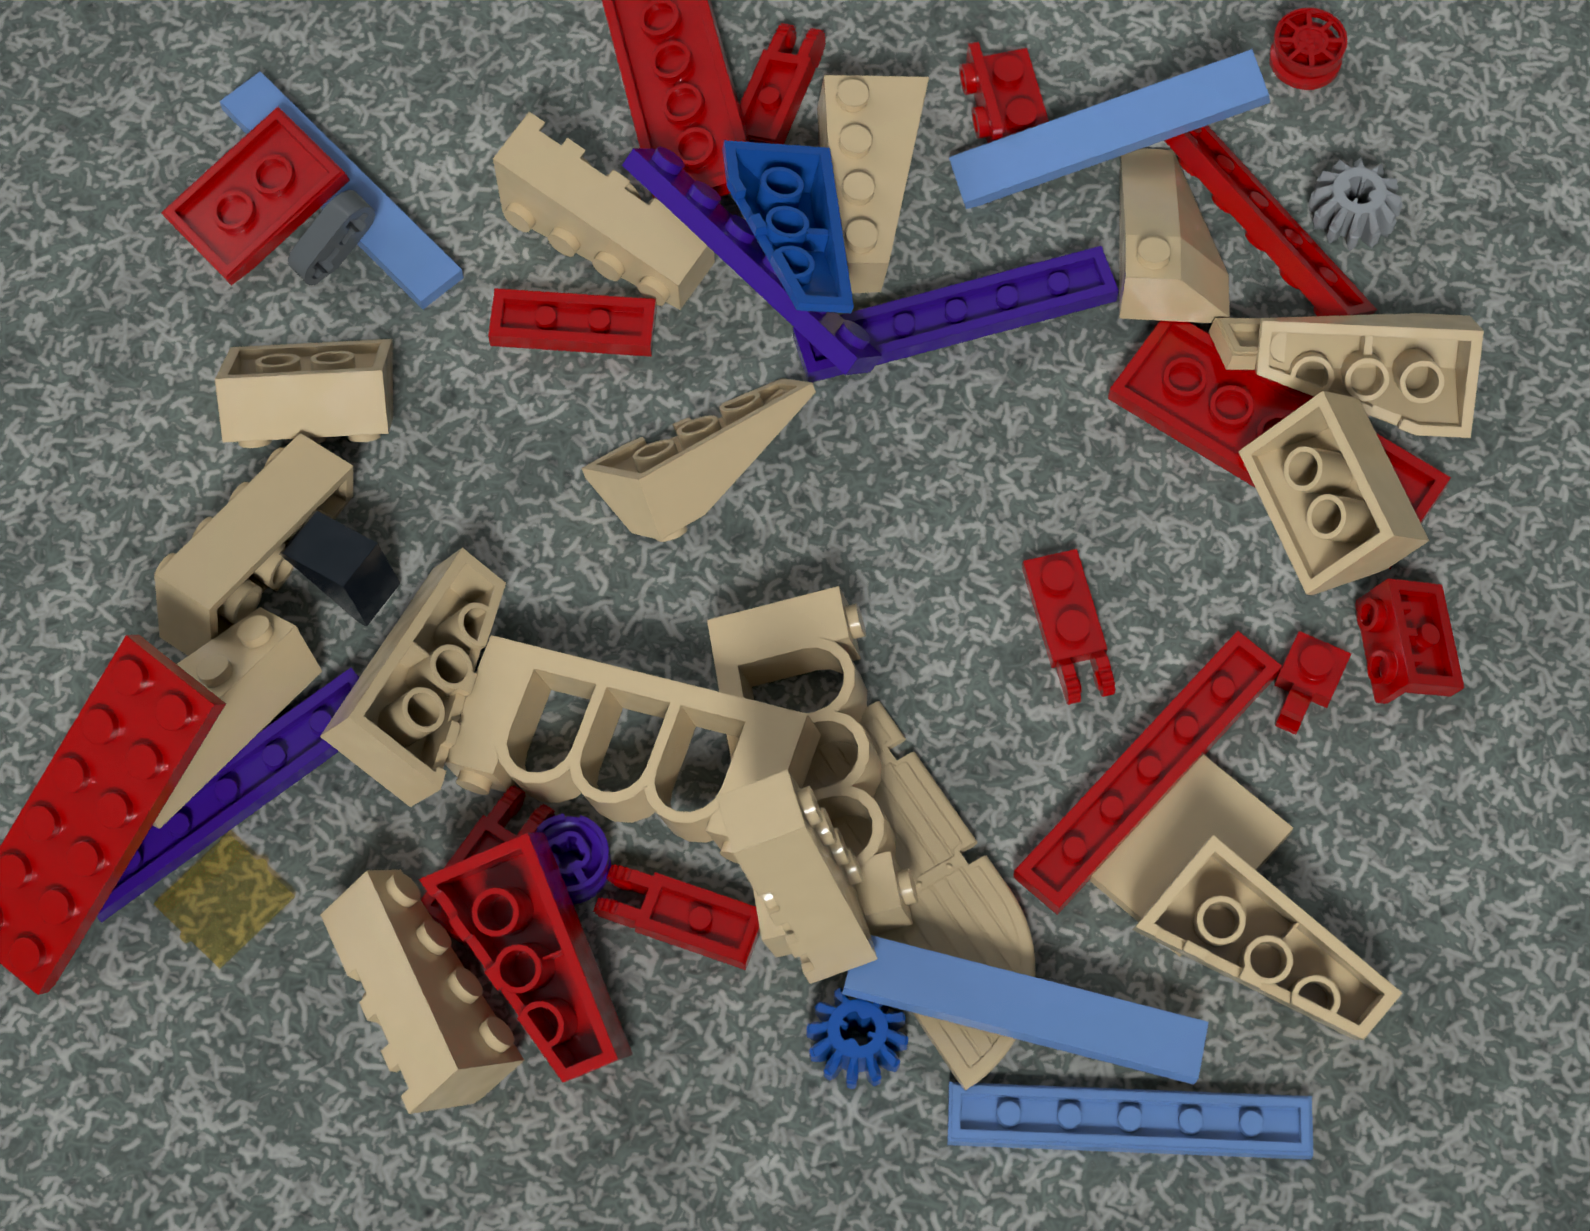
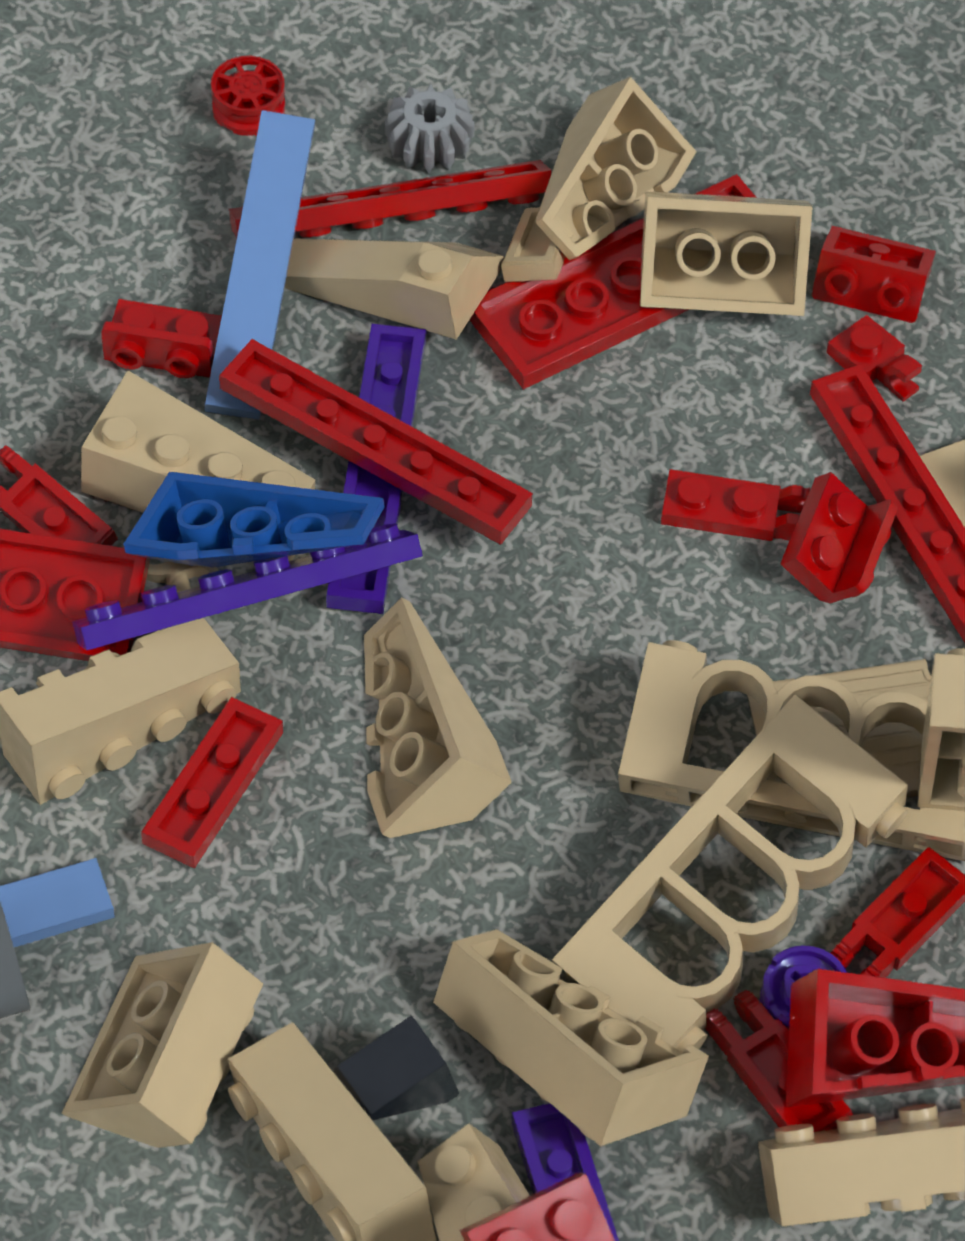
camera: 70 degrees left, 10 degrees down
(960, 297) = (376, 441): none -> red plate
(1065, 716) = (837, 540): none -> red bracket

